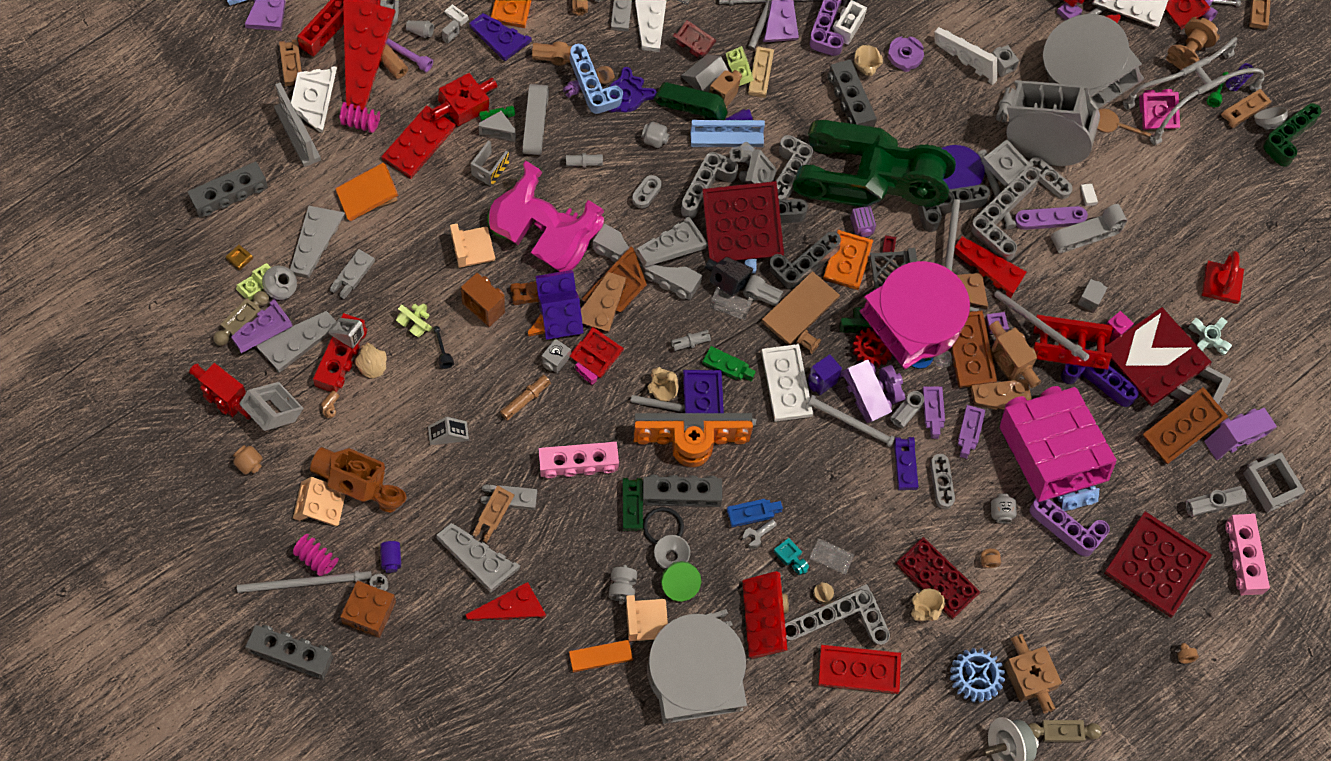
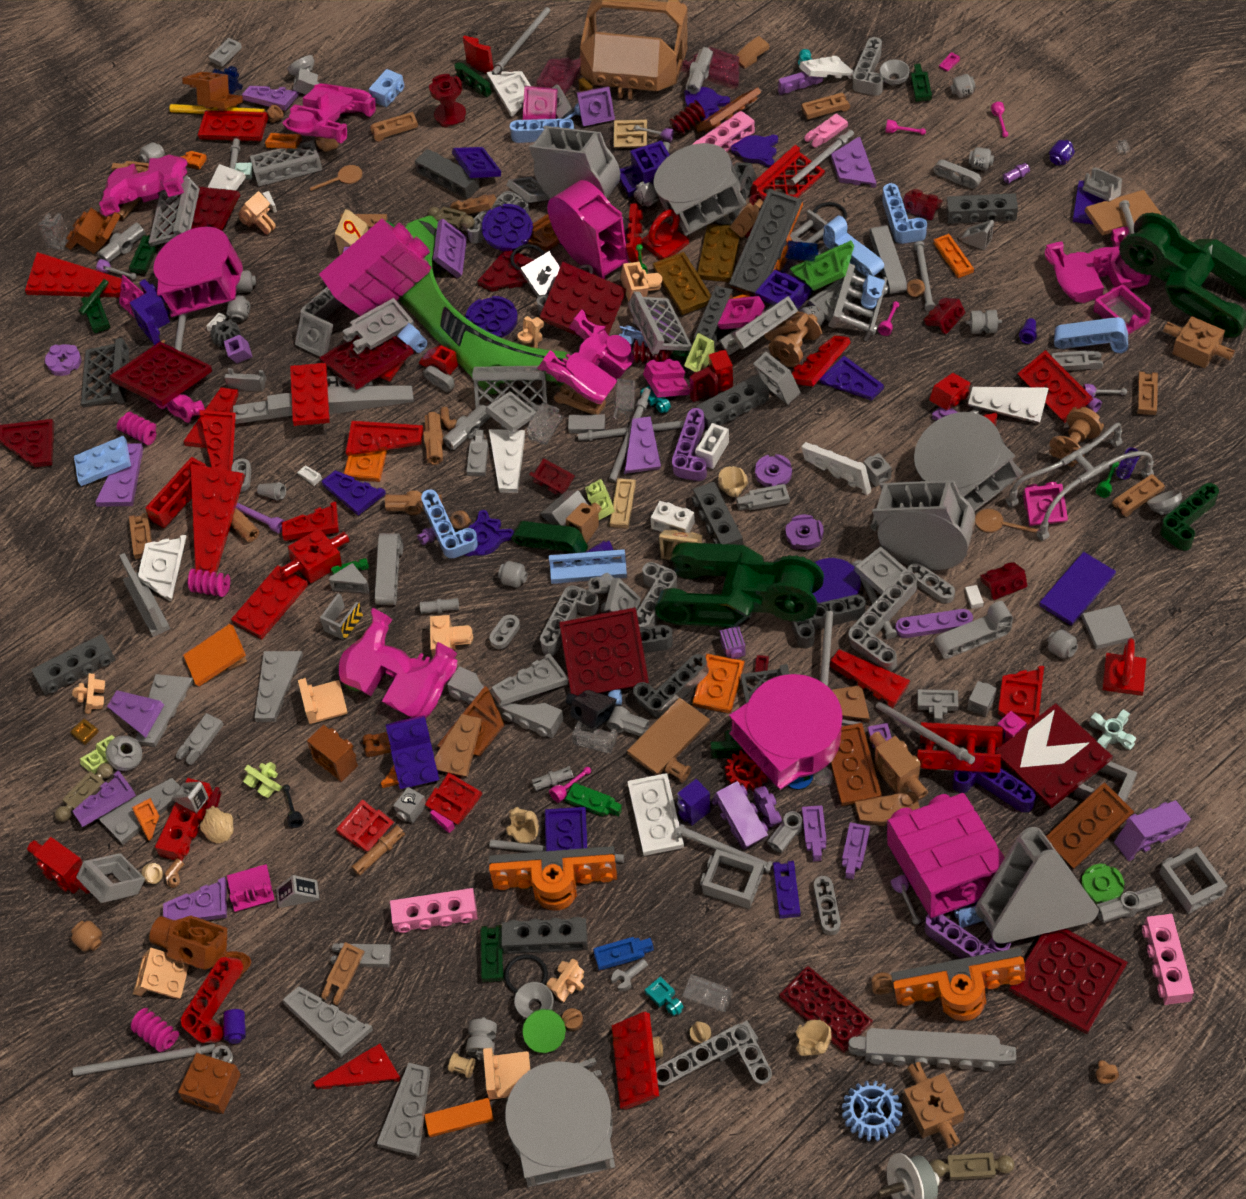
camera: 10 degrees right, 10 degrees down
(246, 212) = (92, 701): none -> light nougat hips
(262, 635) = (154, 1149): dark grey brick -> none
(291, 241) = (136, 710): none -> medium lavender wing
(303, 348) = (147, 817): none -> orange tile
(309, 403) = (152, 873): none -> tan tile
(360, 436) = (206, 903): none -> medium lavender wing
(368, 335) = (215, 798): none -> dark red piece
(373, 528) = (226, 972): none -> red beam
(403, 424) = (250, 888): none -> dark pink hinge
(424, 224) = (275, 681): none -> light grey wing
(450, 31) = (302, 490): light grey tile -> none
(455, 67) = (302, 525): none -> red wing
(512, 373) = (364, 826): none -> red slope
(552, 651) = (406, 1116): none -> light grey wing
(590, 190) = (443, 632): none -> light nougat brick
(604, 607) = (461, 1065): none -> tan bush
(696, 354) = (558, 792): none -> dark pink hinge
(704, 536) = (568, 981): none -> light nougat hips
(707, 571) = (572, 1019): none -> medium nougat tile
(809, 93) = (671, 517): none -> white brick
(810, 113) = (671, 538): none -> tan slope
(849, 463) = (723, 893): none -> light grey window
(859, 669) = (741, 1113): red plate -> none
(896, 79) = (764, 498): none -> light grey hinge
(931, 126) = (804, 541): none -> medium lavender plate
(1003, 508) = (894, 929): light grey head -> none
(1011, 467) = (900, 885): none -> hinge
(1033, 621) = (932, 1049): none -> light grey hinge
(1051, 296) = (937, 702): none -> light grey hinge
(1063, 566) = (960, 982): none -> orange piece
(1118, 181) = (1004, 580): none -> dark red bracket
(1129, 295) = (1022, 694): none -> red wing
(1135, 486) = (1033, 892): none -> light grey brick
(1168, 248) = (1062, 644): none -> light grey head
(1184, 195) = (1077, 588): none -> dark purple tile
(1192, 479) = (1102, 883): none -> bright green tile
(1210, 235) = (1107, 626): none -> light grey tile

